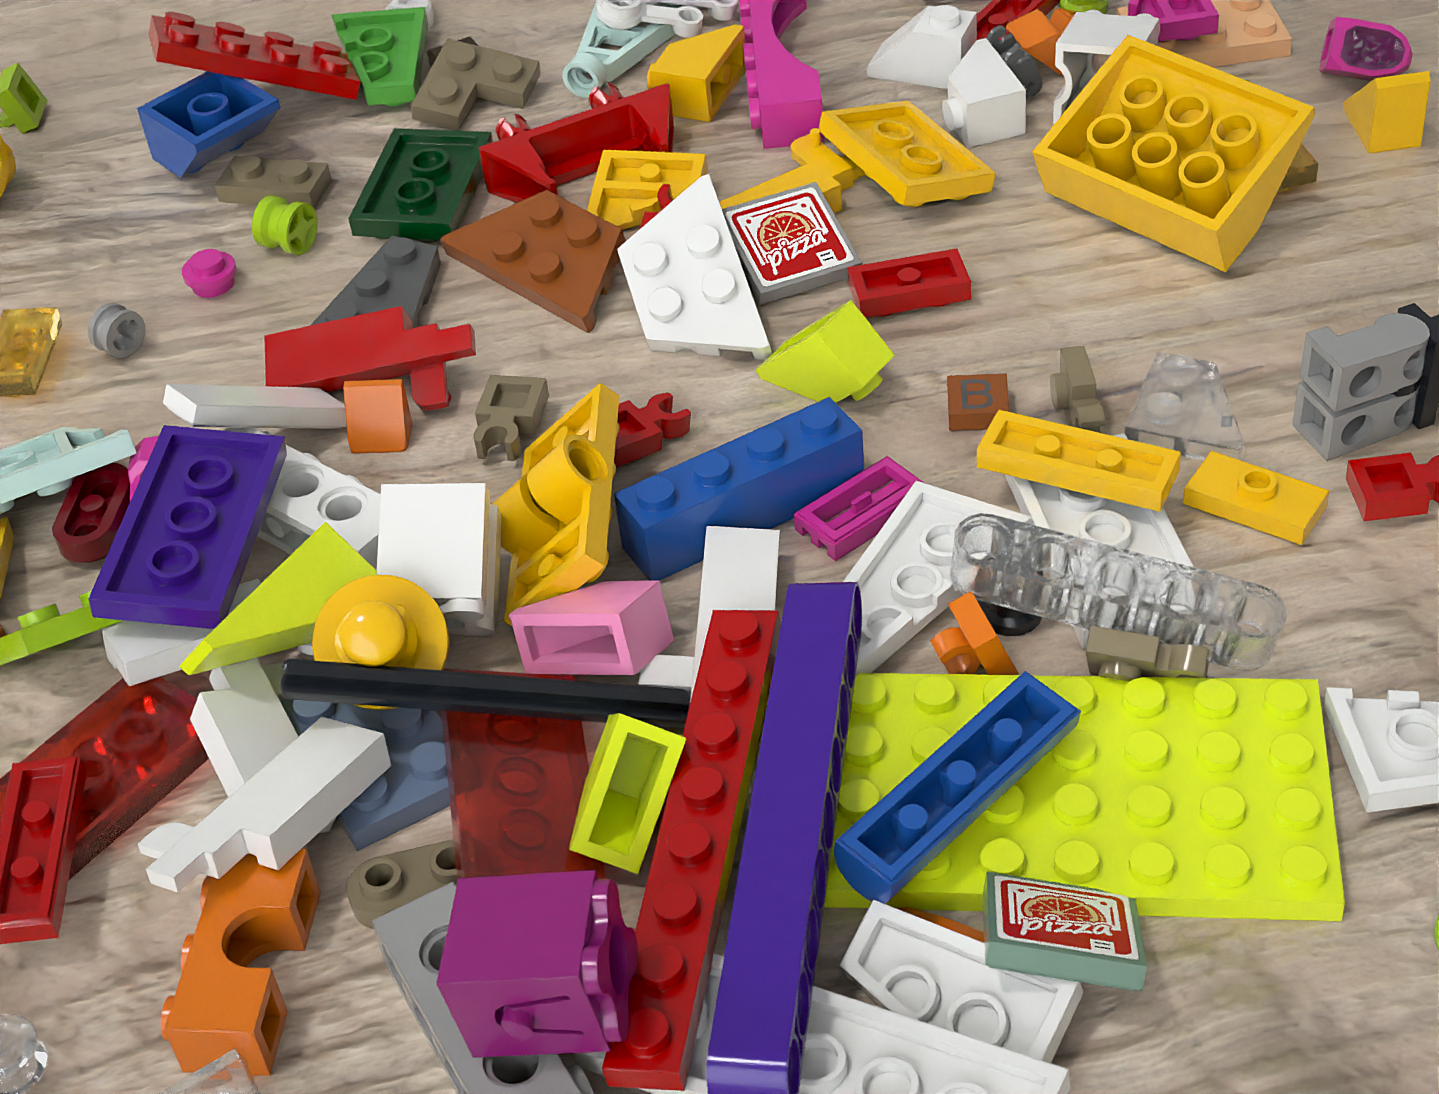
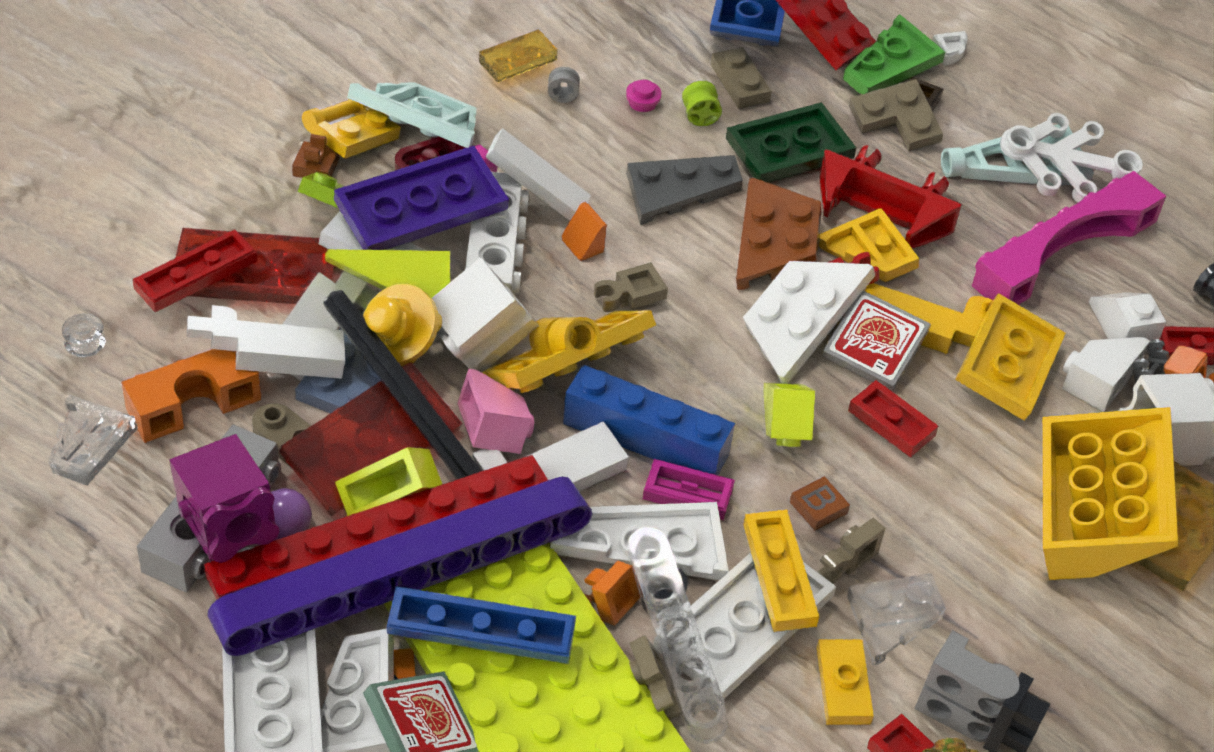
camera: 45 degrees right, 5 degrees up
(369, 348) = (626, 198): red piece -> none
(644, 428) = (661, 349): red plate -> none
(701, 71) = (998, 214): yellow slope -> none

